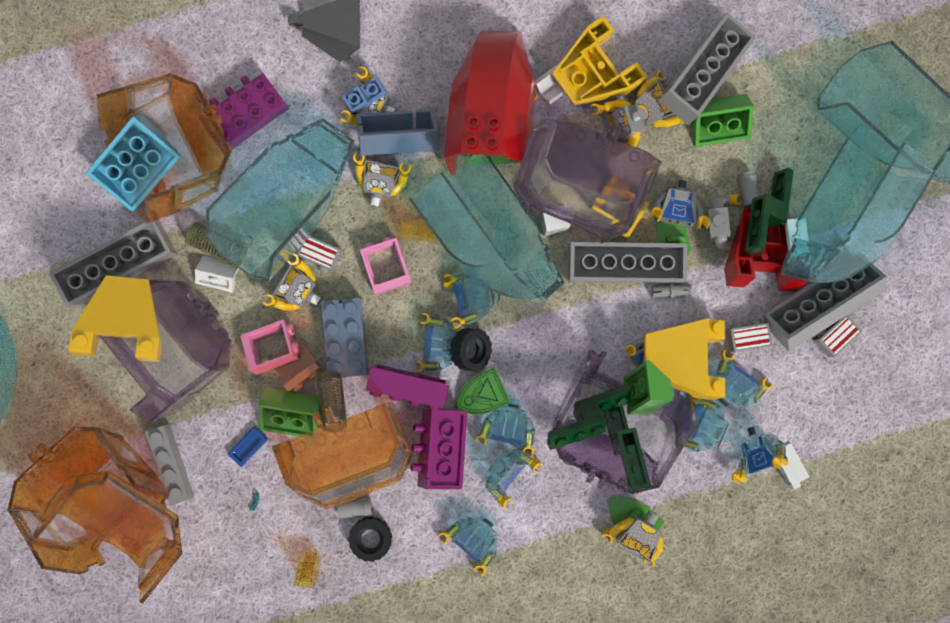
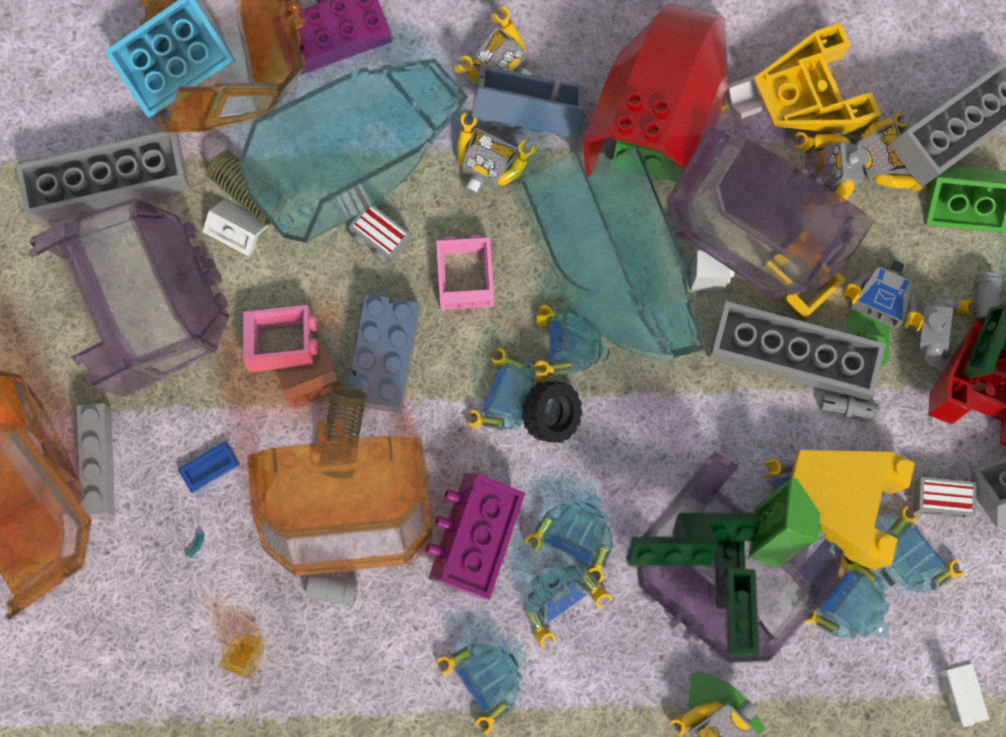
camera: 20 degrees right, 10 degrees down
(119, 309) = (100, 222): yellow wedge -> none
(287, 412) = (272, 424): bright green slope -> none
(295, 288) = (334, 270): torso -> none
(359, 549) = (321, 631): black tyre -> none
(365, 95) = (499, 45): medium blue slope -> none
(407, 385) = (453, 434): magenta piece -> none
(414, 231) = (516, 237): clear yellow slope -> none
(482, 394) = (553, 477): bright green shield -> none
(759, 454) = (924, 663): torso -> none

